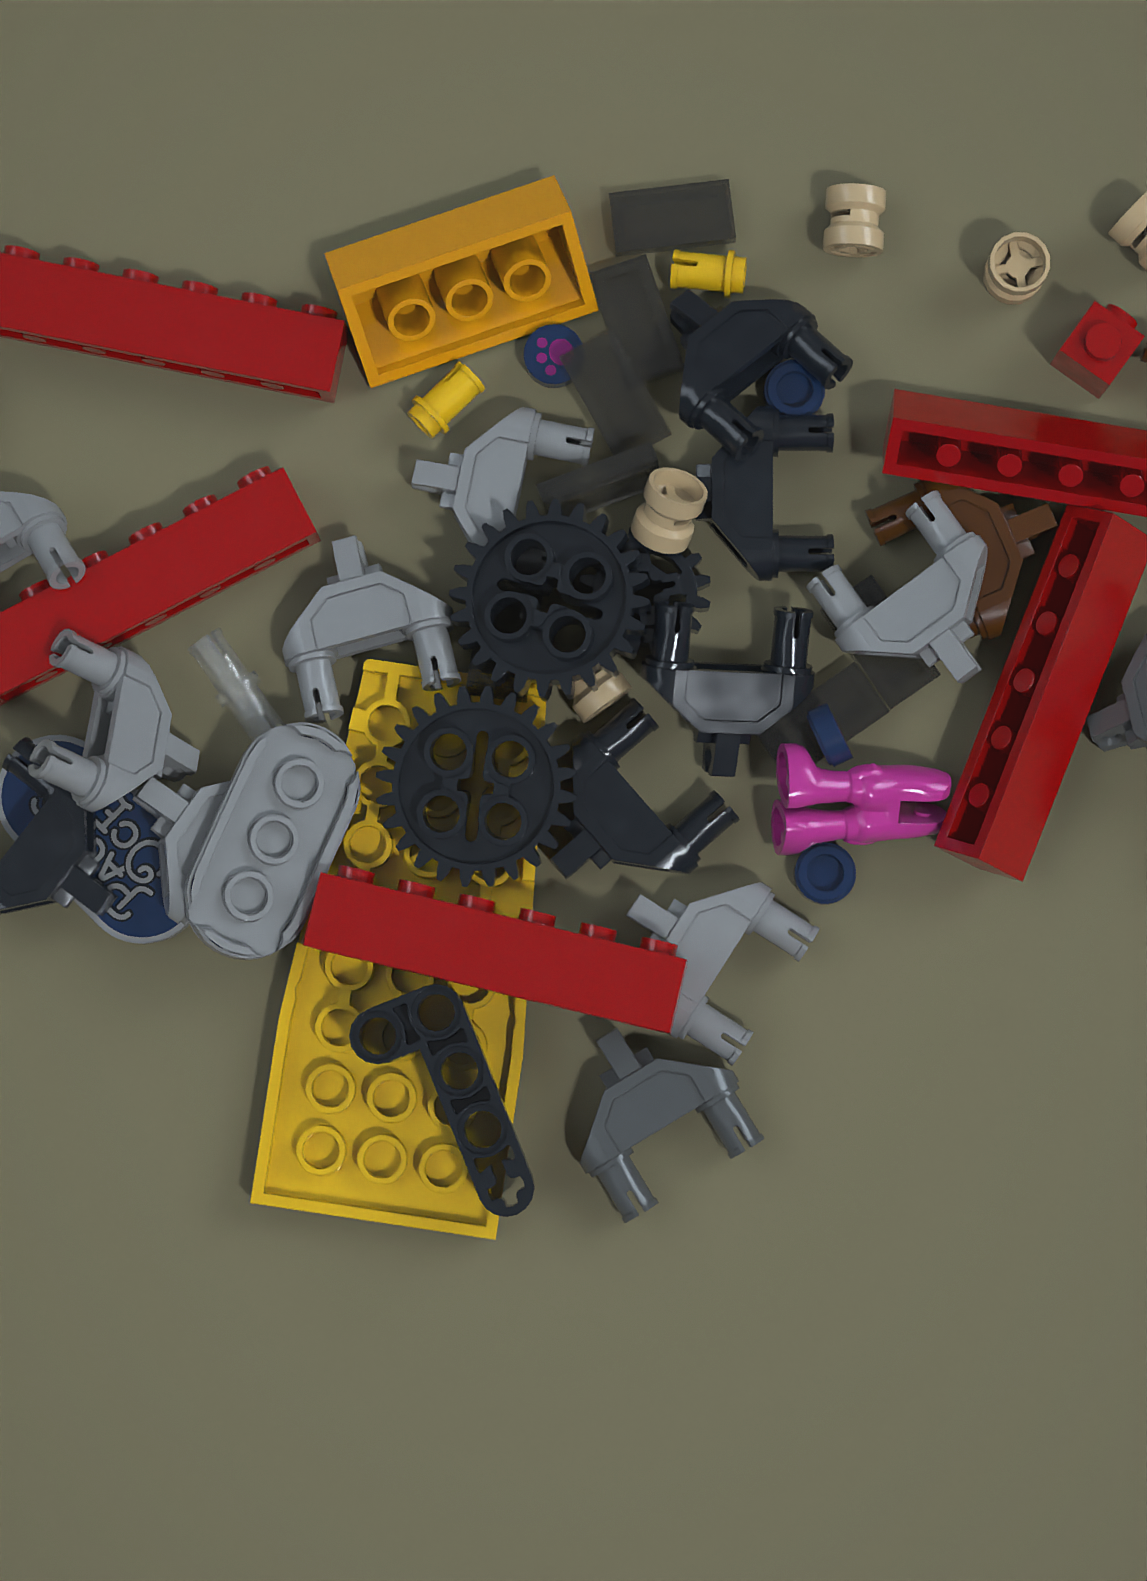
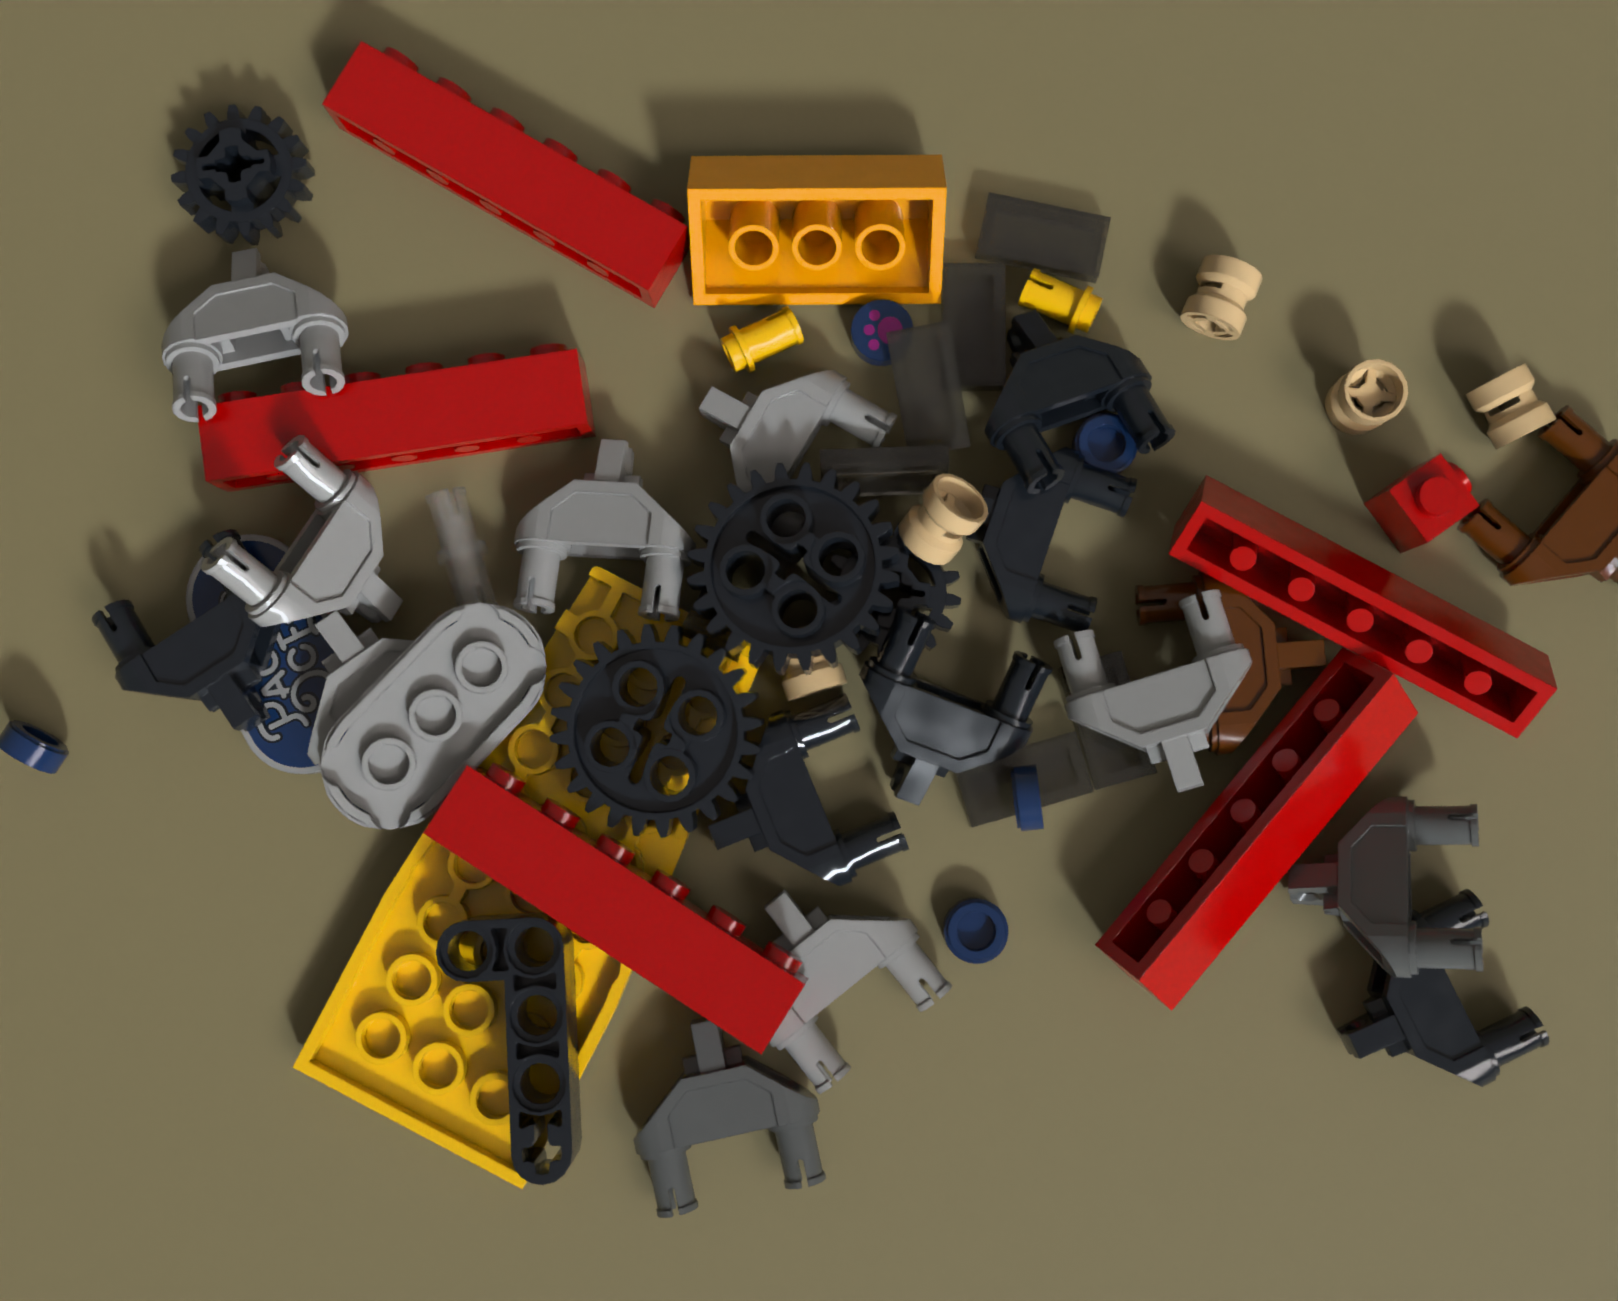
camera: 20 degrees right, 0 degrees up
(874, 796) = (1058, 878): dark pink piece -> none

